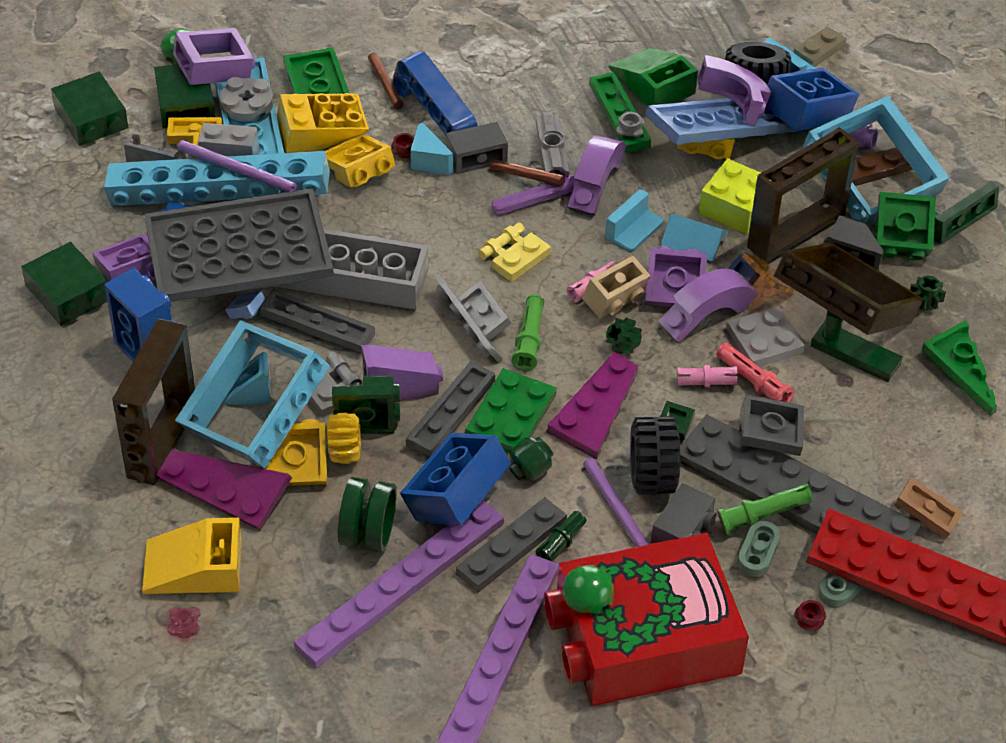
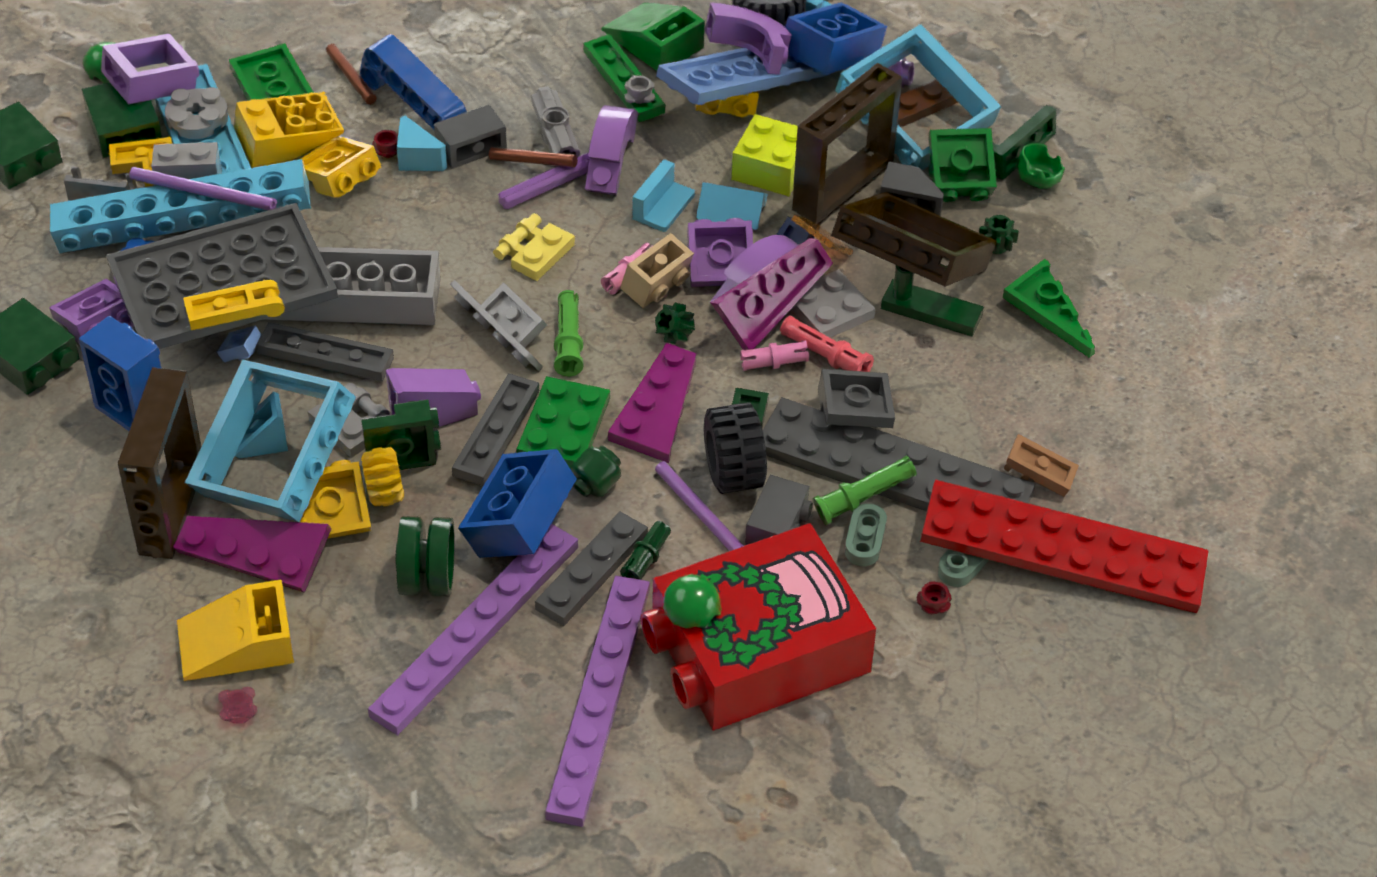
camera: 10 degrees left, 0 degrees up
(242, 271) = (234, 304): none -> yellow plate
(709, 322) = (768, 295): none -> magenta wing
(974, 236) = (1038, 167): none -> green hair

